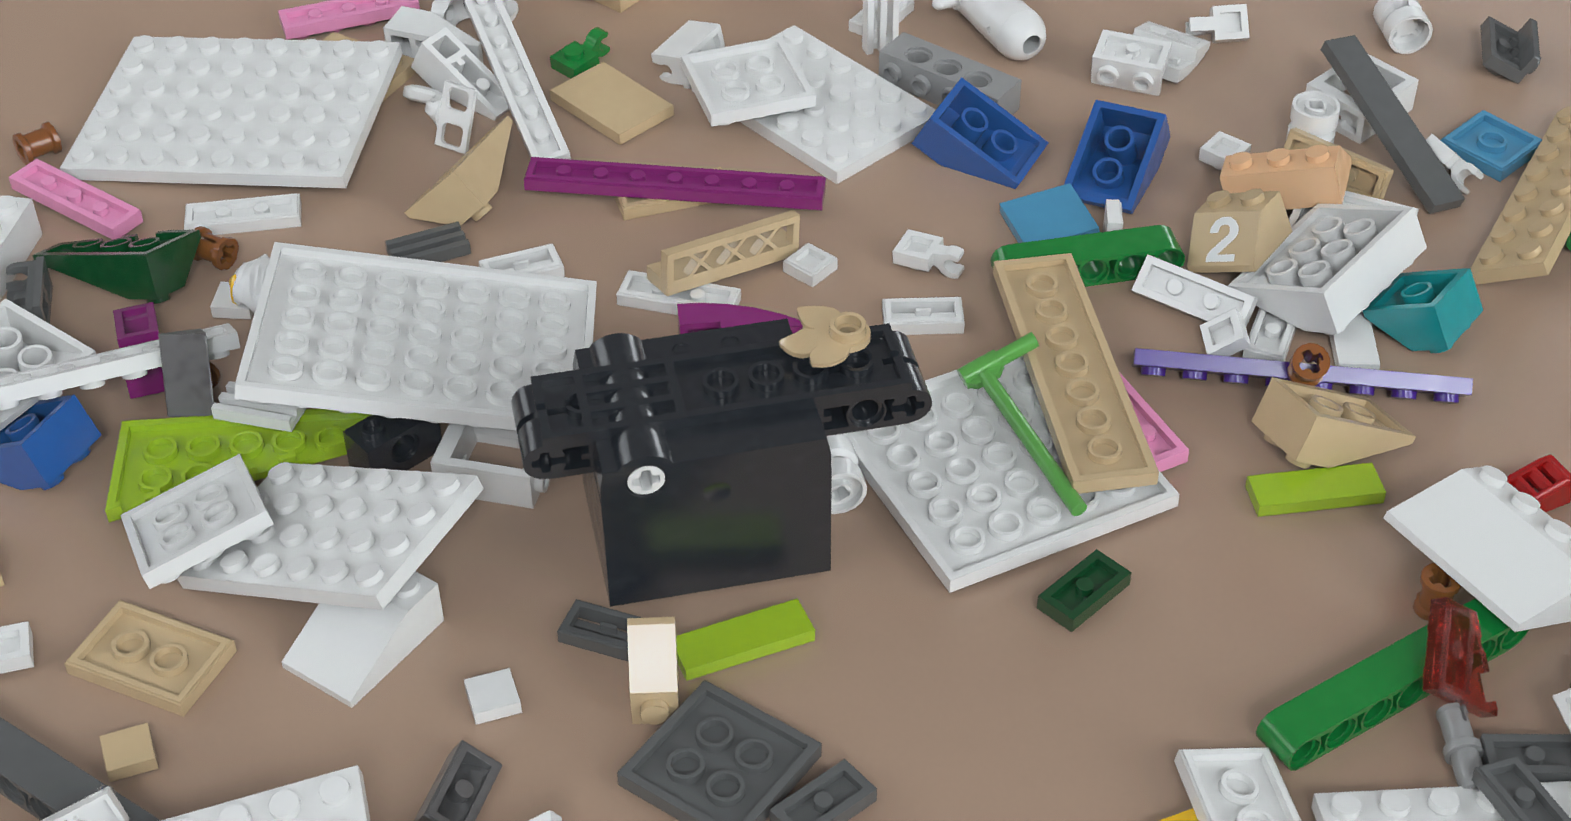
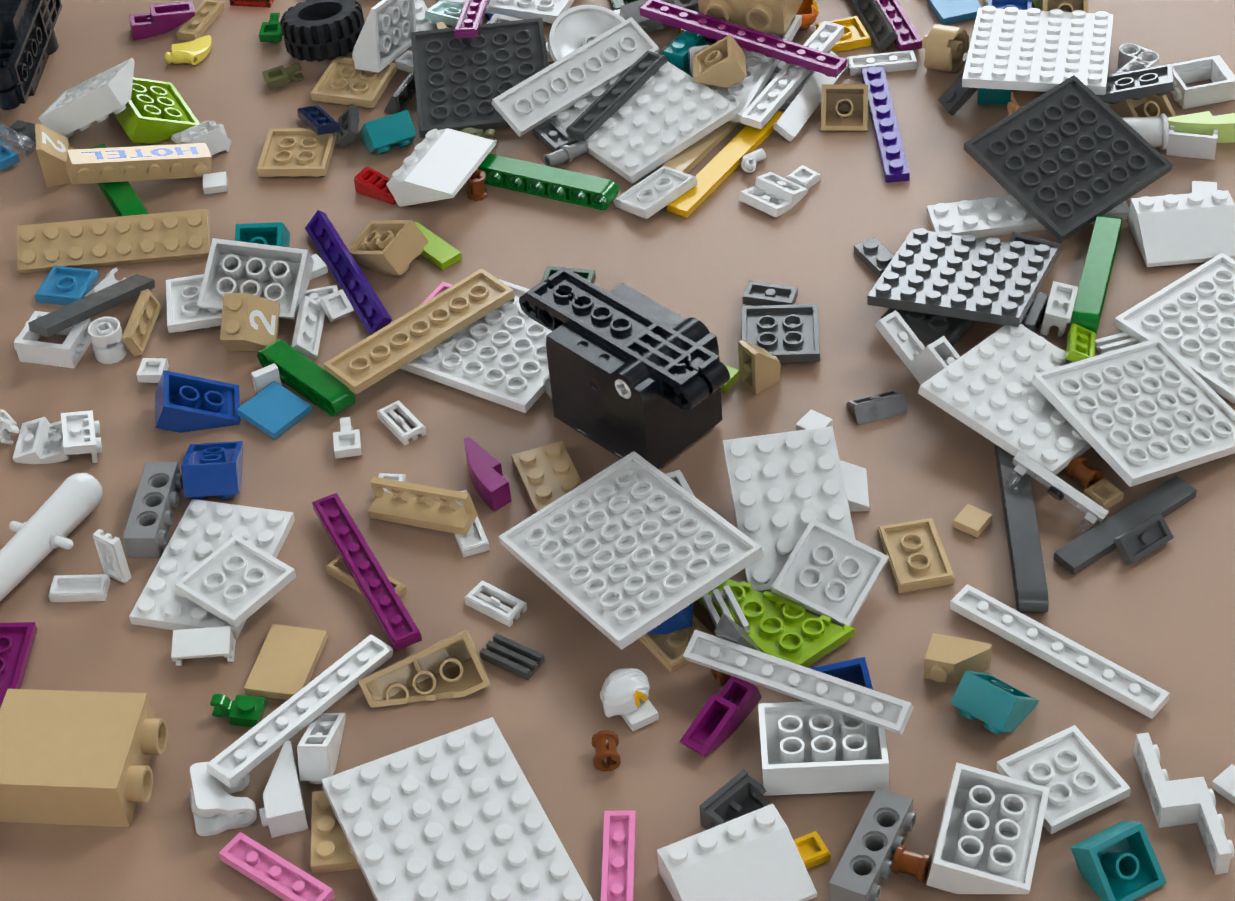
camera: 120 degrees left, 0 degrees up
(127, 265) = (656, 777): dark green wedge -> none
(245, 214) = (555, 771): white tile -> none
(442, 113) = (379, 721): white piece -> none
(593, 637) = (741, 425): dark grey tile -> none
(826, 335) = (562, 297): tan plate -> none
(985, 373) = (453, 356): bright green bar -> none
(1300, 175) = (176, 323): light nougat slope -> none
(1310, 353) = (358, 251): dark orange bush -> none
(1456, 657) = (528, 152): clear red wing -> none

